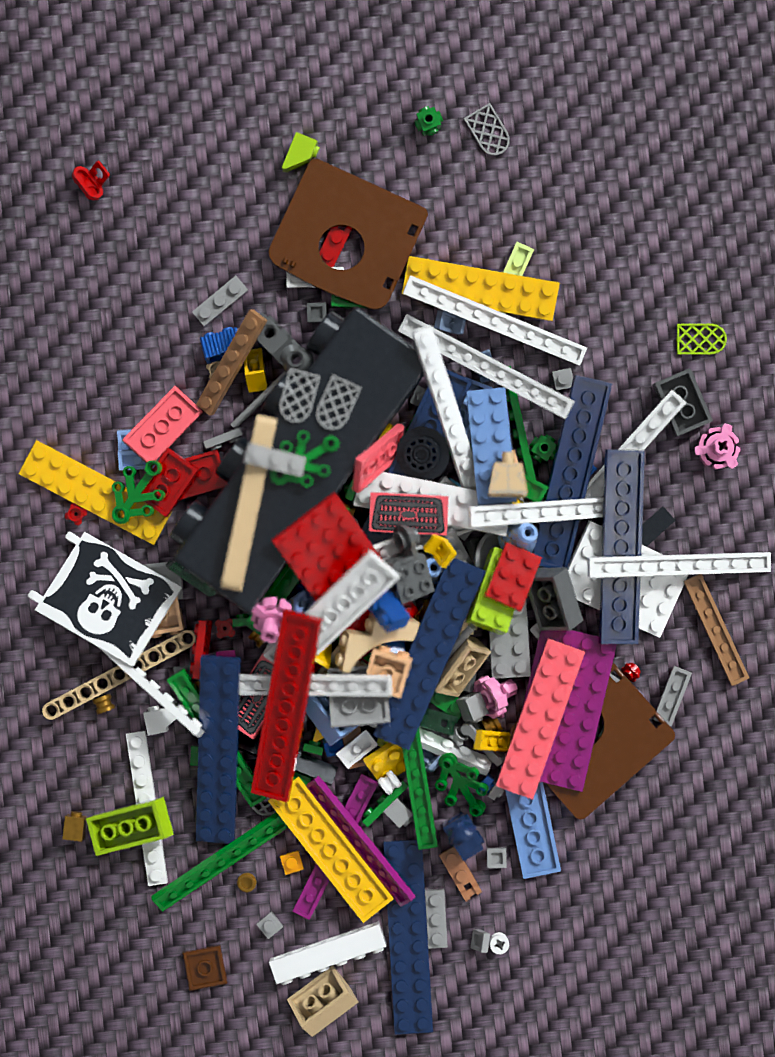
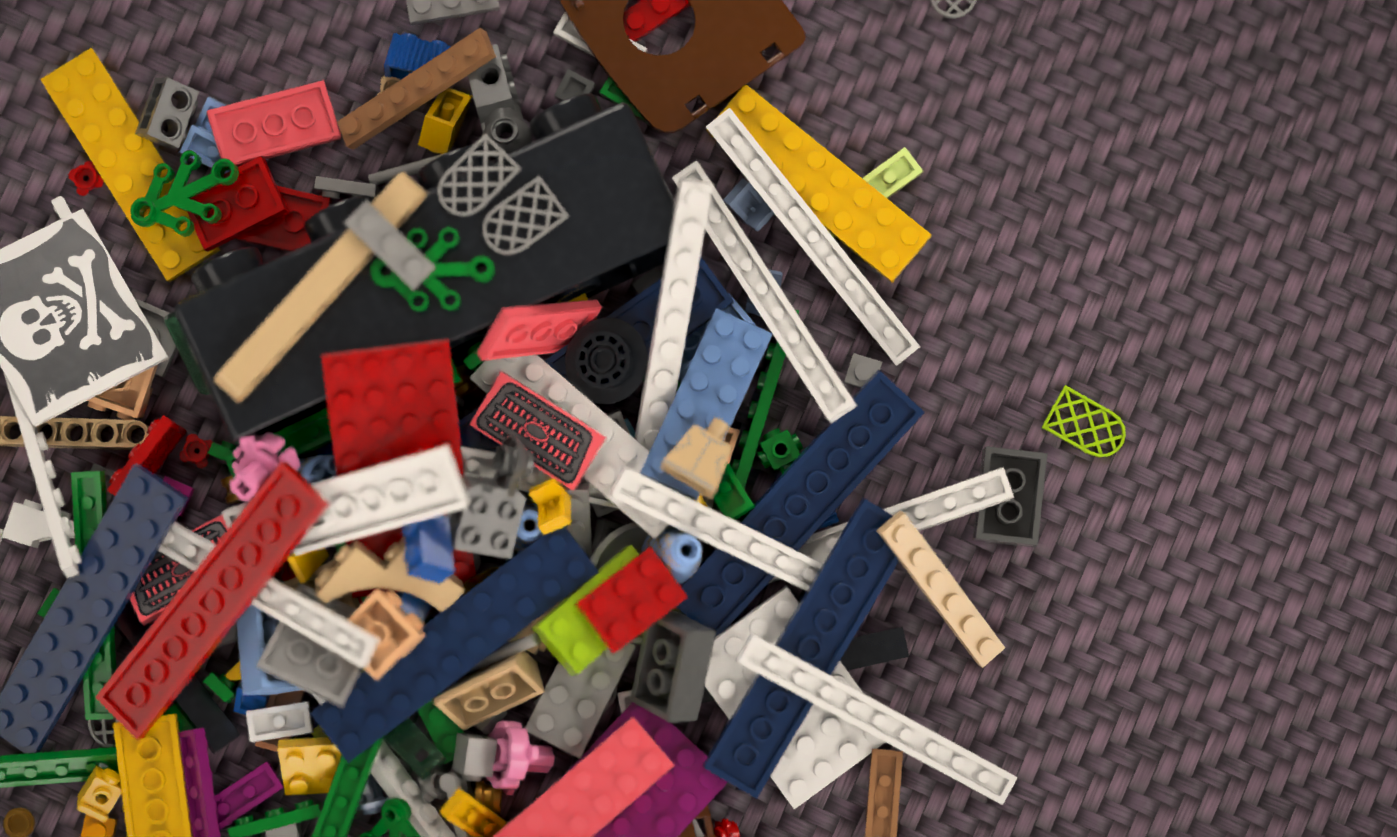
camera: 30 degrees right, 5 degrees down
(95, 452) = (160, 109): none -> dark grey brick
(281, 842) = (92, 795): none -> yellow brick
(389, 782) = (297, 794): white wheel -> none
(674, 474) = (941, 588): none -> tan plate
(711, 448) = (1041, 576): bright pink piece -> none

